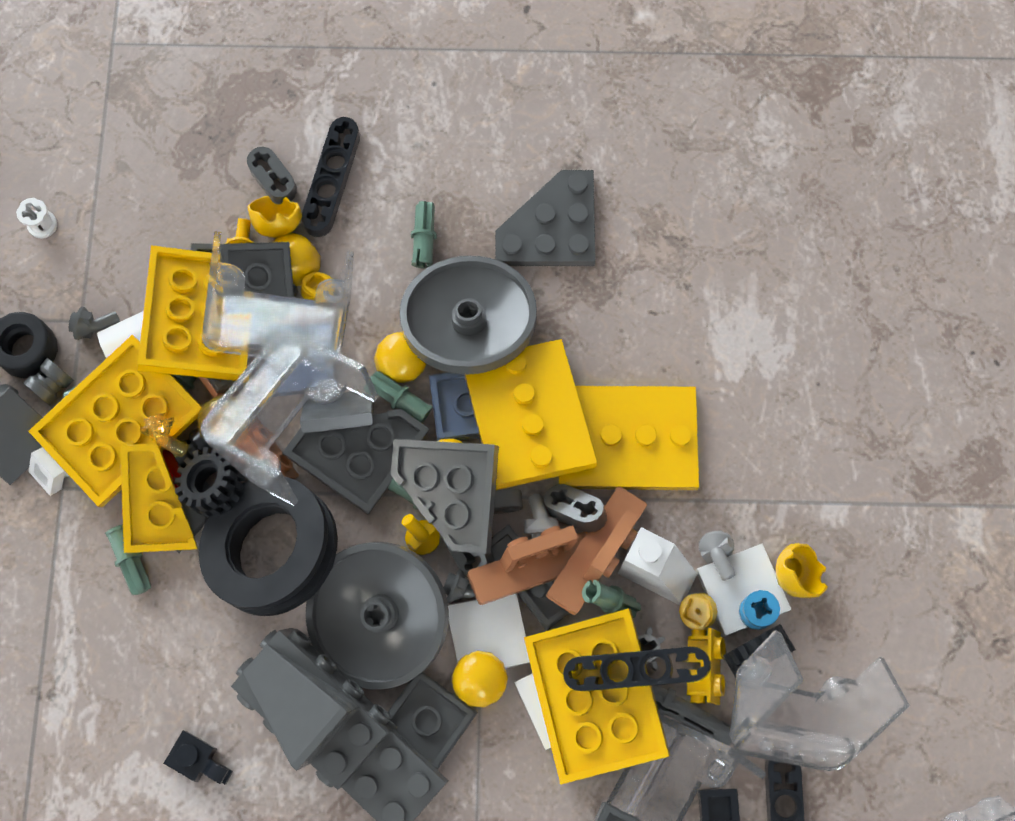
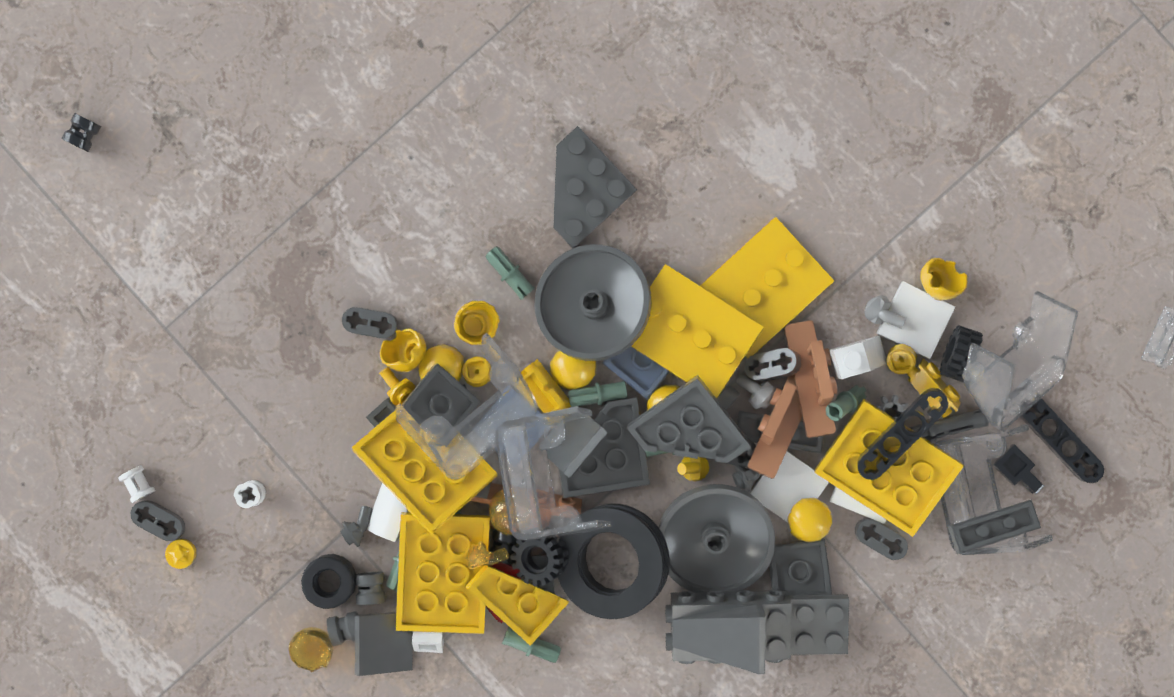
camera: 40 degrees left, 15 degrees up
(334, 177) = (412, 286): black beam -> none
(359, 238) = (475, 320): none -> yellow hair
(360, 341) = (544, 388): none -> yellow hinge
(538, 759) = (884, 532): none -> dark grey beam
(755, 616) = (932, 328): dark azure wheel -> none

